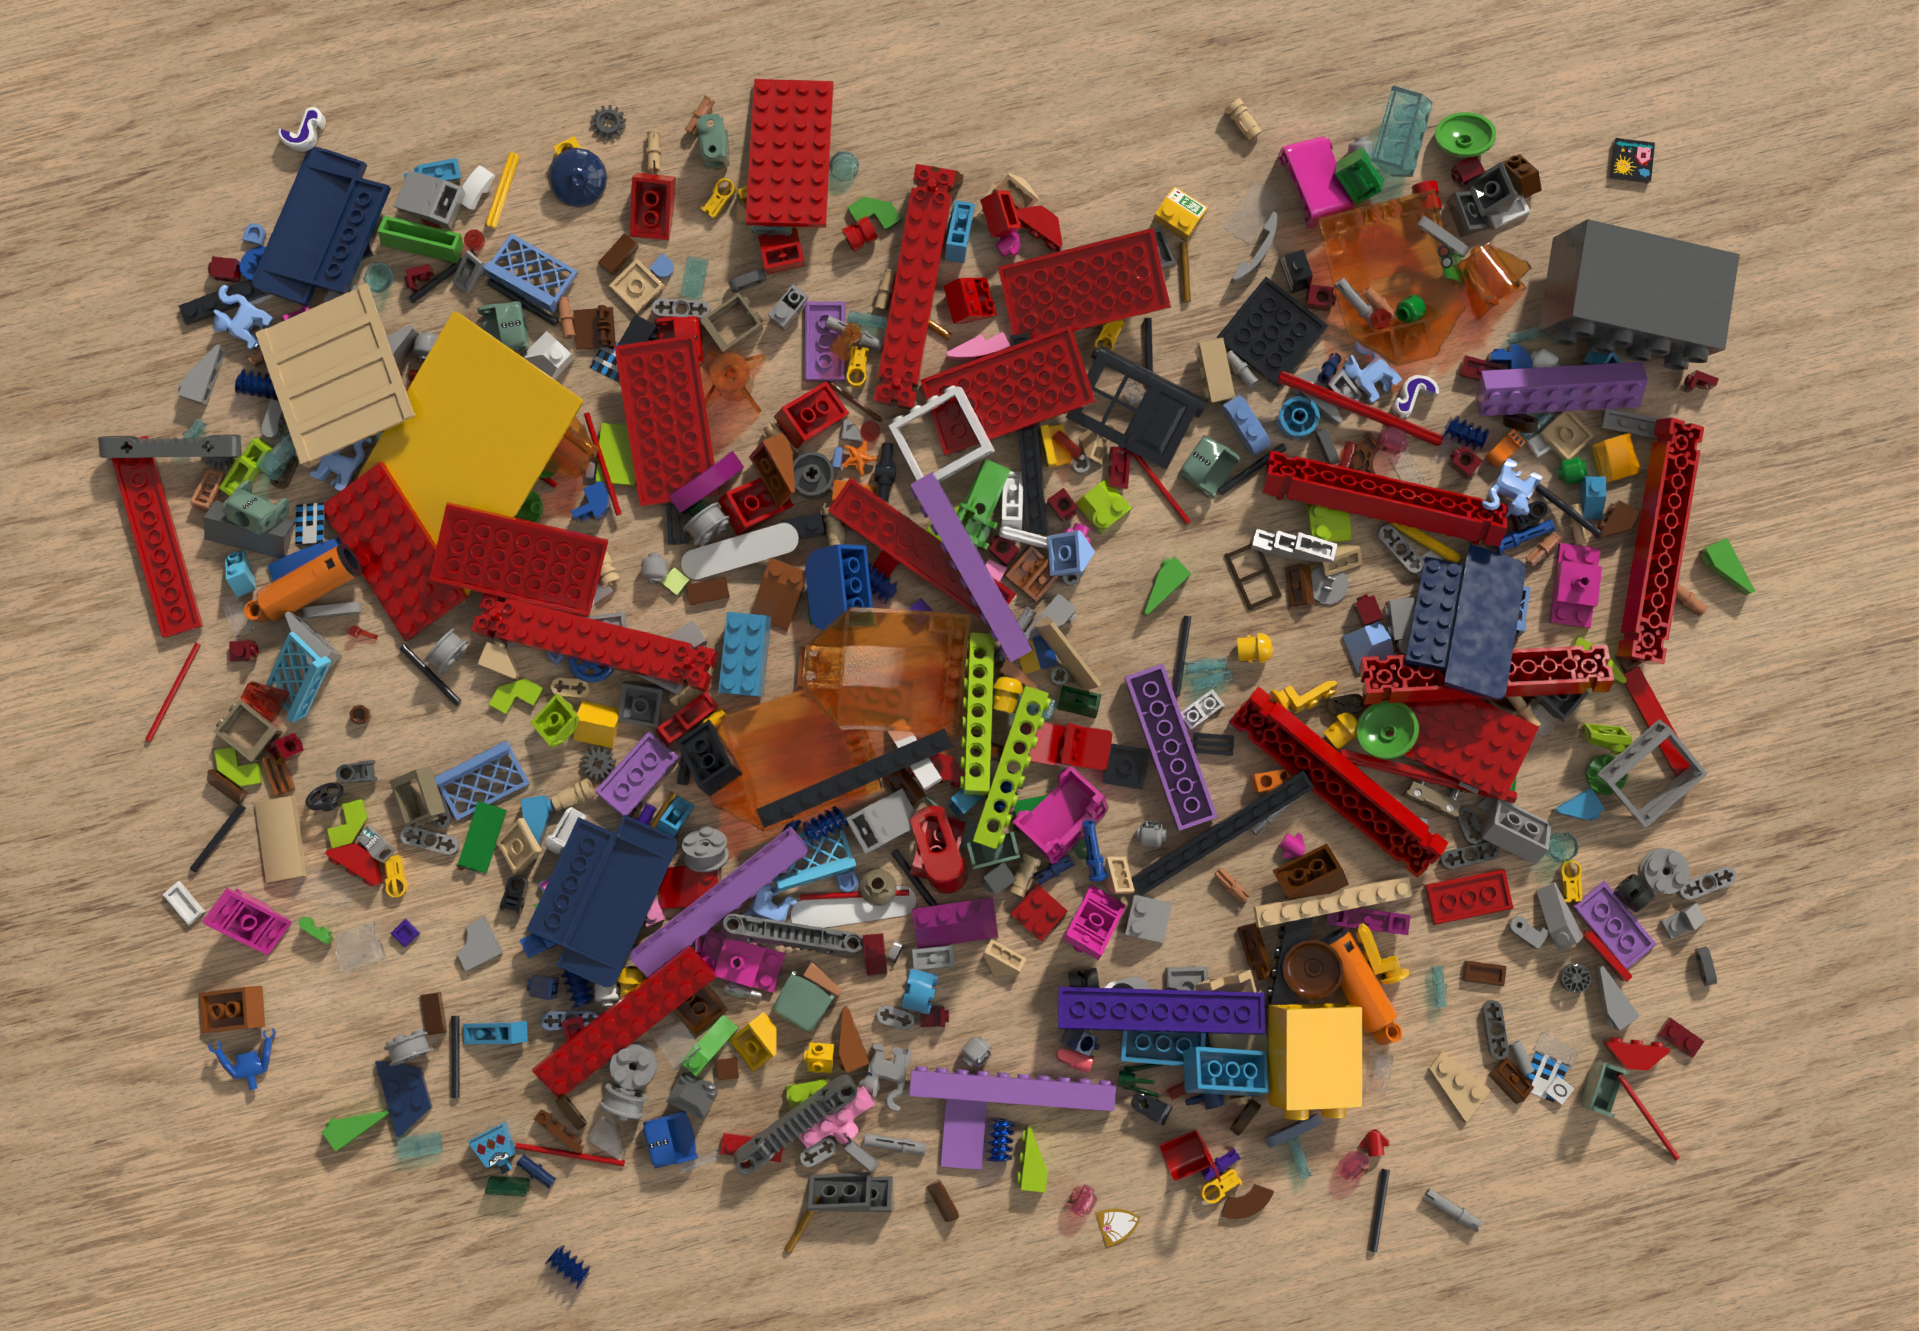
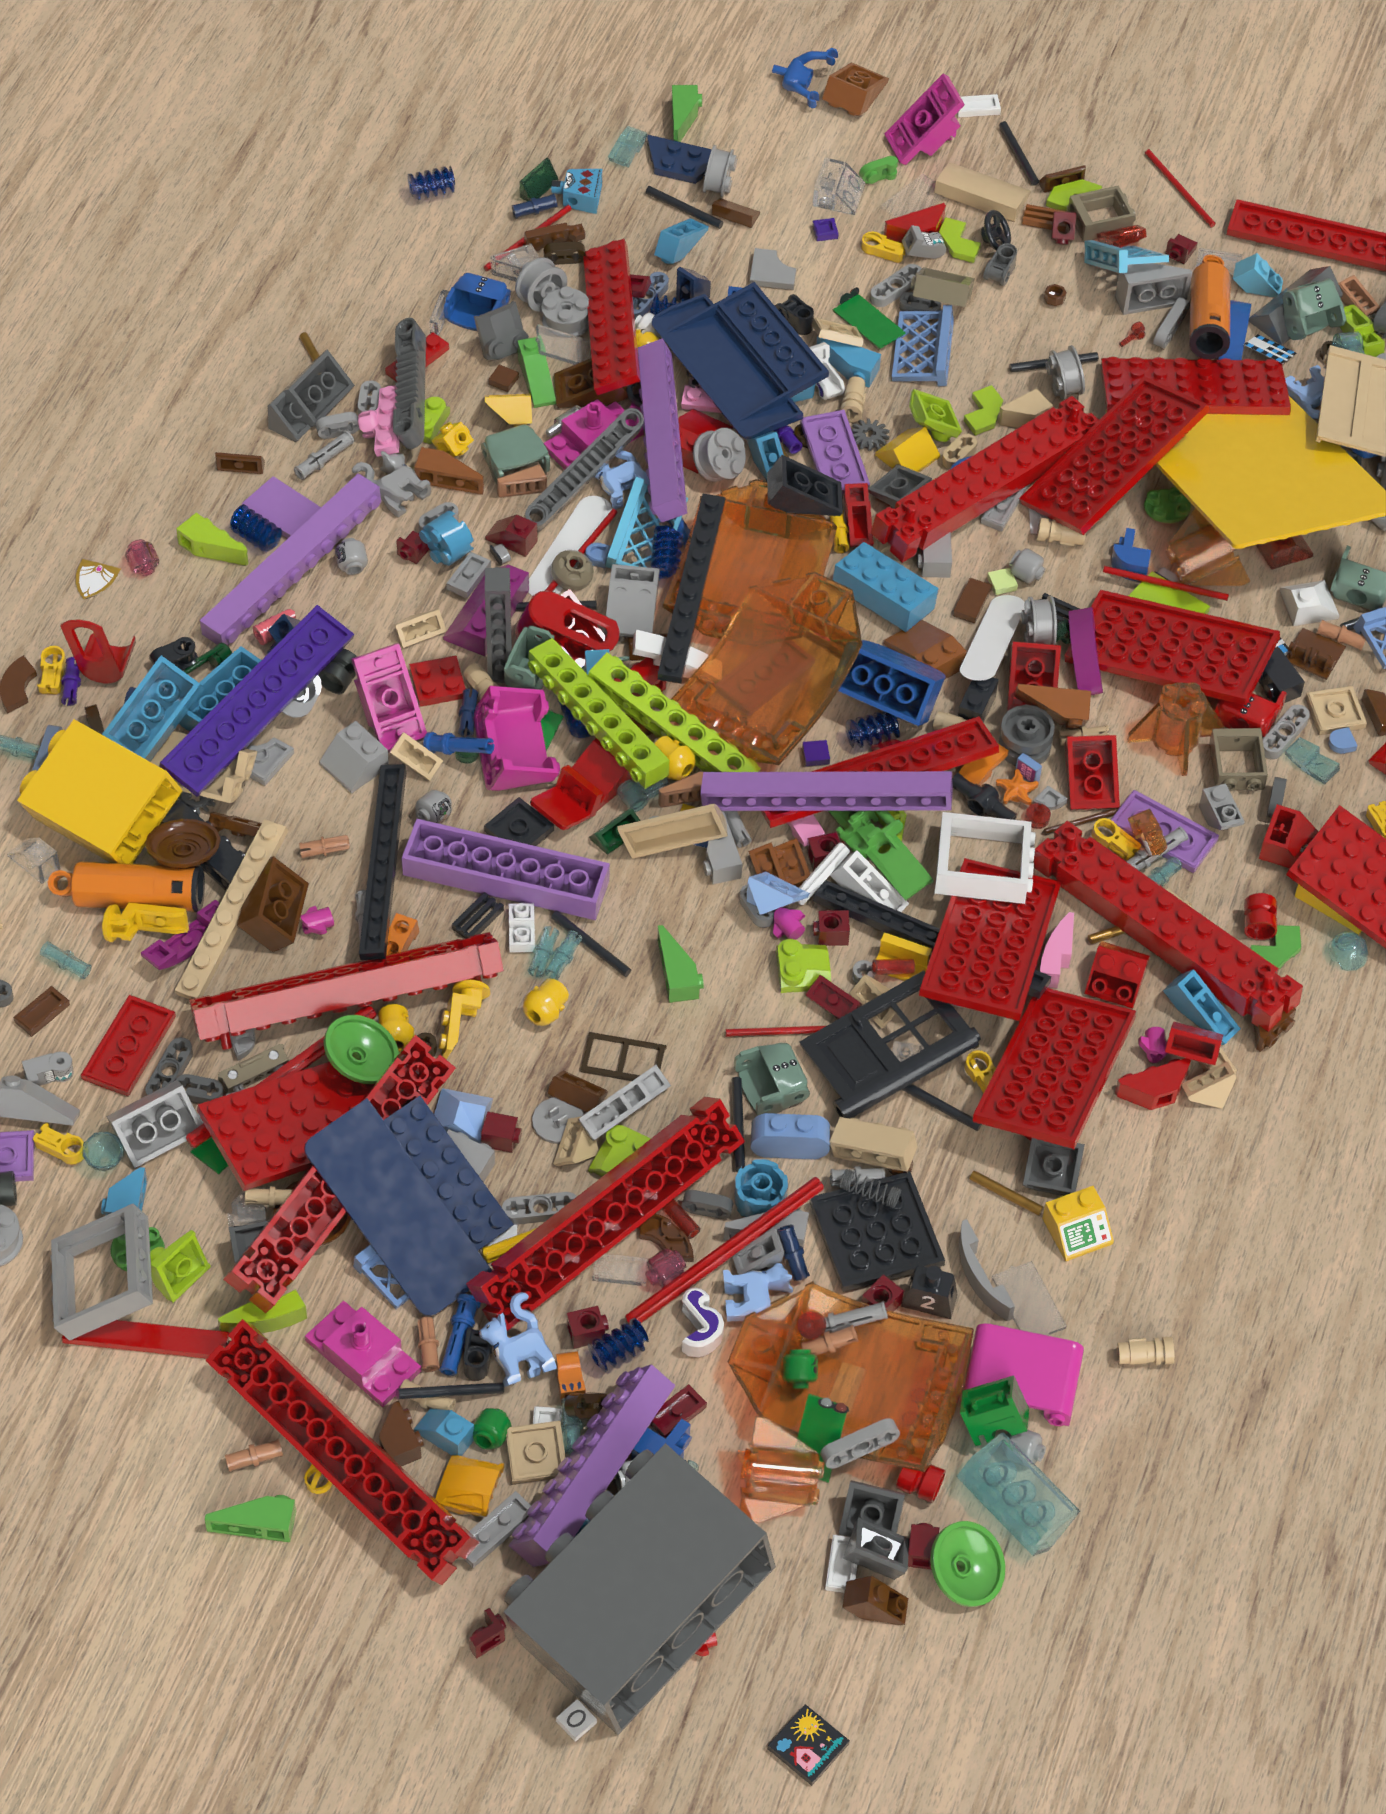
camera: 120 degrees right, 30 degrees down
(1254, 367) = (846, 1181): none -> dark grey piece

